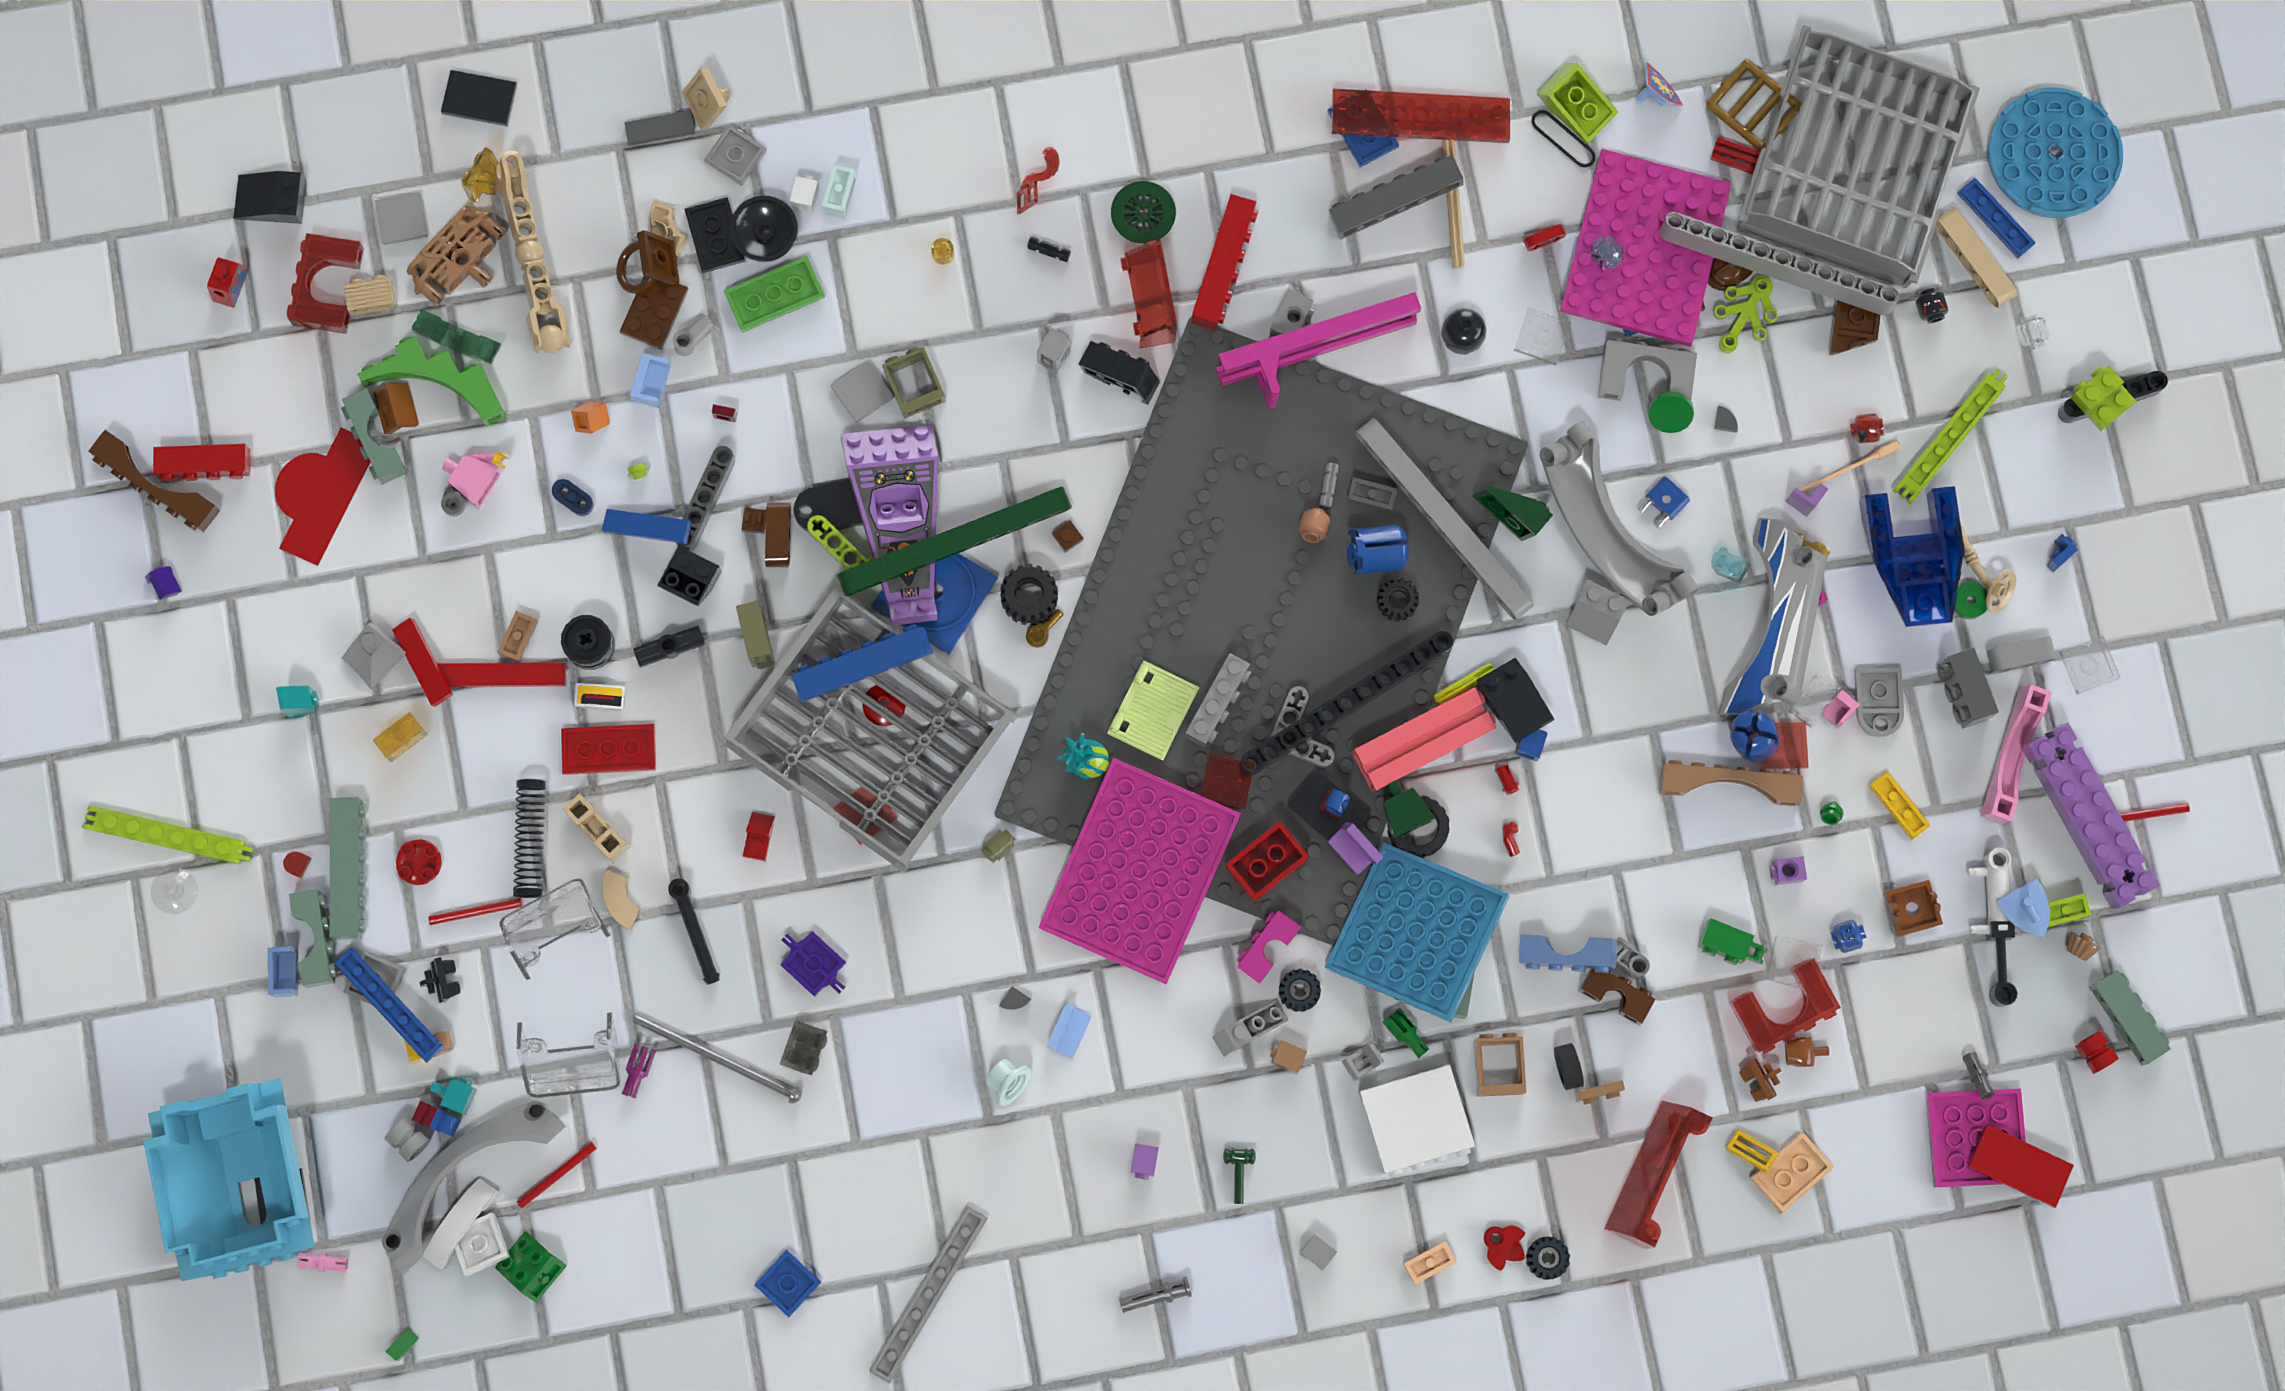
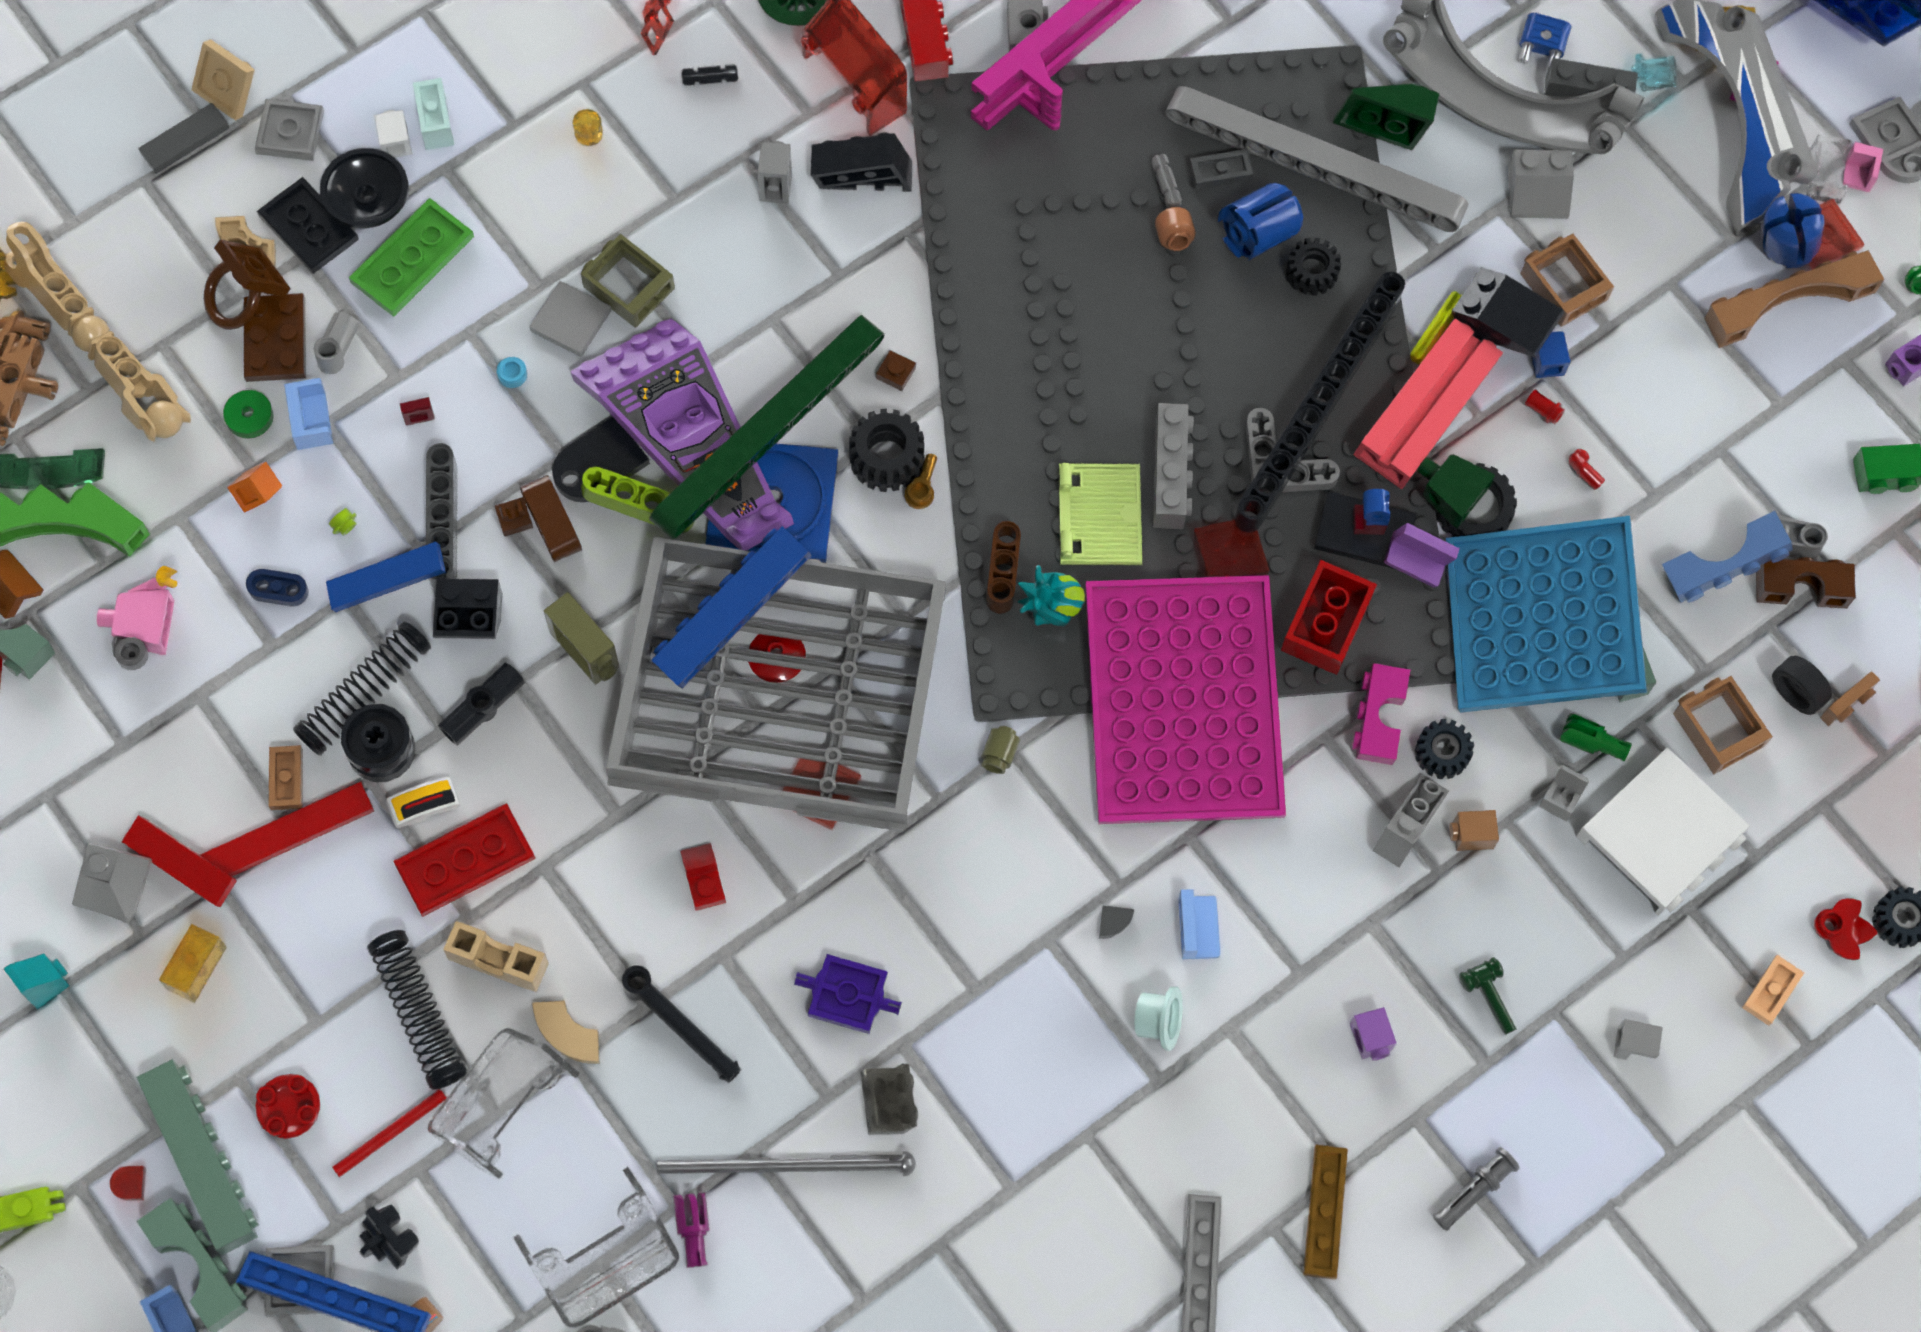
camera: 25 degrees left, 10 degrees down
(545, 614) = (412, 635): none -> black piece
(607, 350) = (244, 402): none -> green piece
(803, 413) = (512, 372): none -> medium azure tile
(1051, 1260) = (1325, 1212): none -> pearl gold tile
(1072, 710) = (1003, 554): none -> reddish brown beam
(1575, 716) = (1570, 246): none -> medium nougat window
(1671, 548) = (1578, 78): none -> dark grey arch

